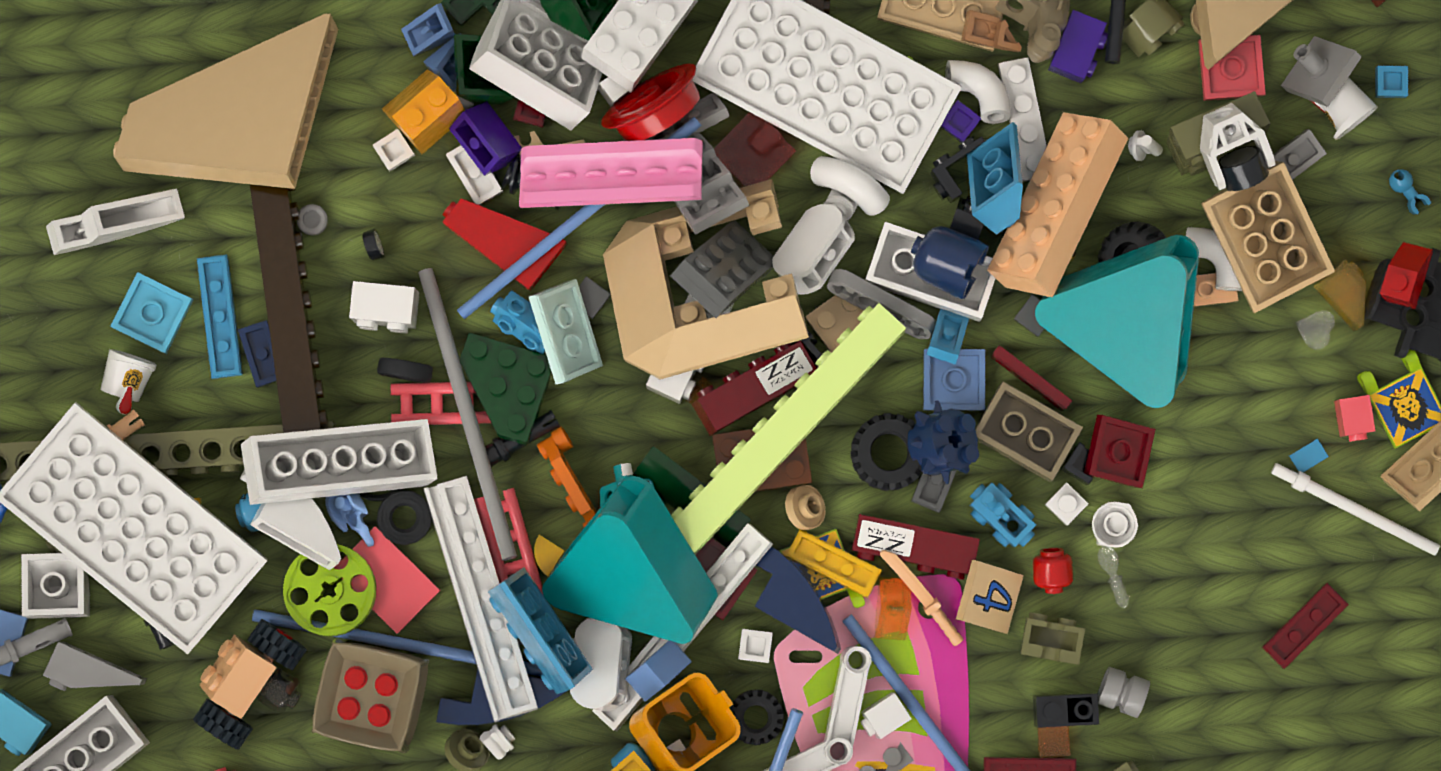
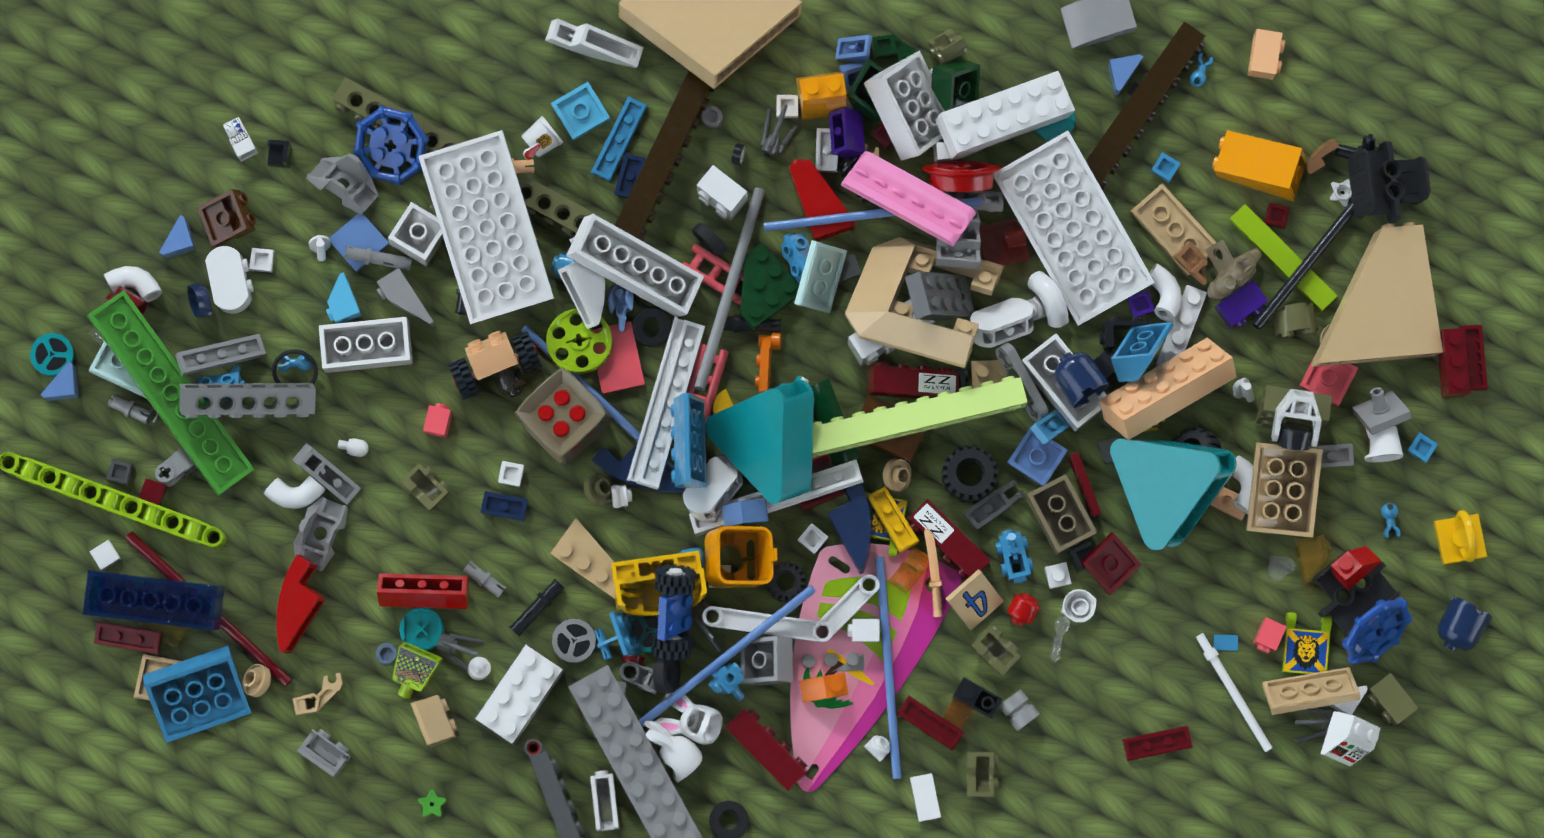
camera: 35 degrees right, 5 degrees down
(405, 207) = (772, 144): none -> dark grey plant
(943, 441) = (1006, 486): dark blue brick -> none

